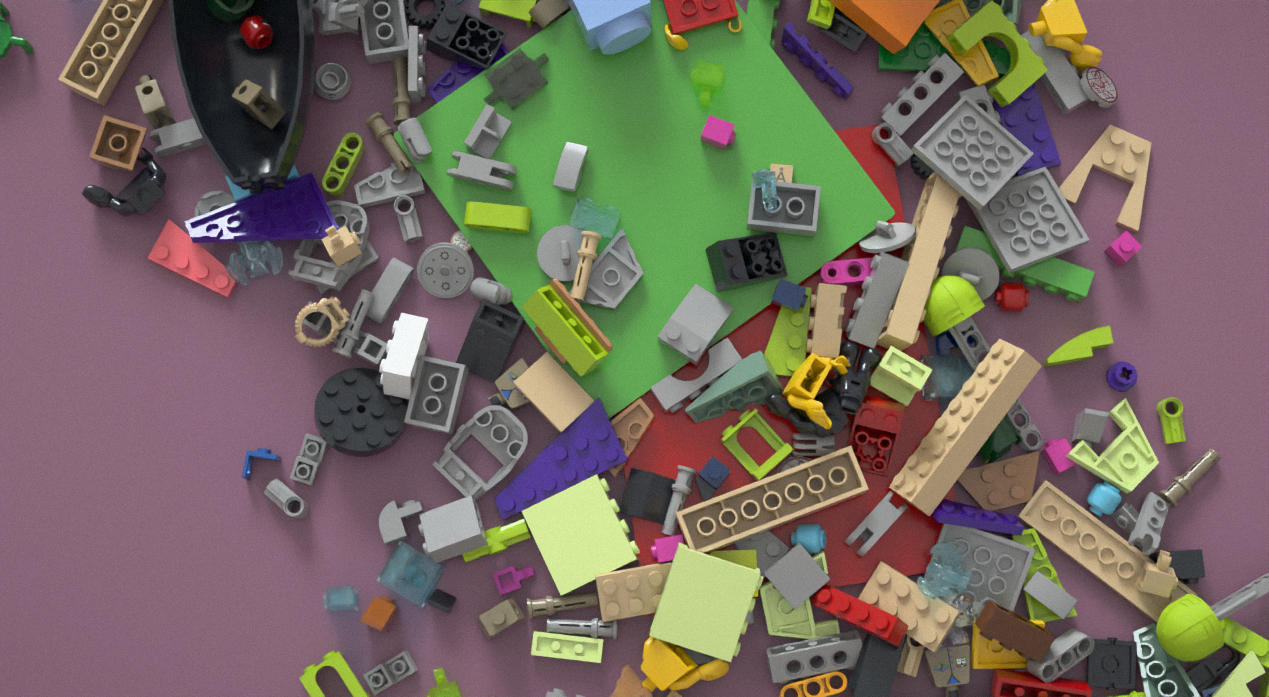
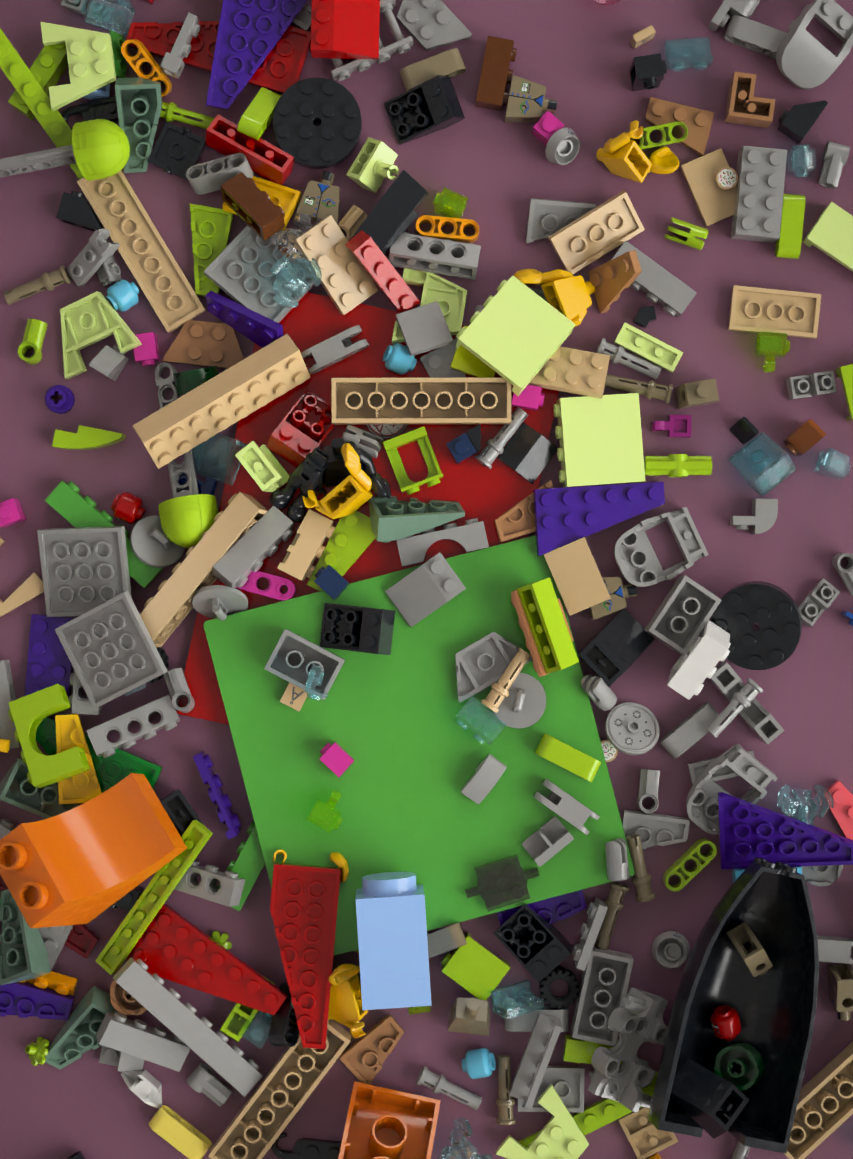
camera: 165 degrees left, 10 degrees up
(333, 310) = (753, 730): tan piece -> none
(341, 244) = (721, 783): tan brick -> none
(452, 529) = (712, 487): light grey brick -> none
(582, 677) = (645, 316): none -> black piece
(1050, 595) = (206, 227): light grey slope -> none
(1158, 577) = (105, 206): tan brick -> none

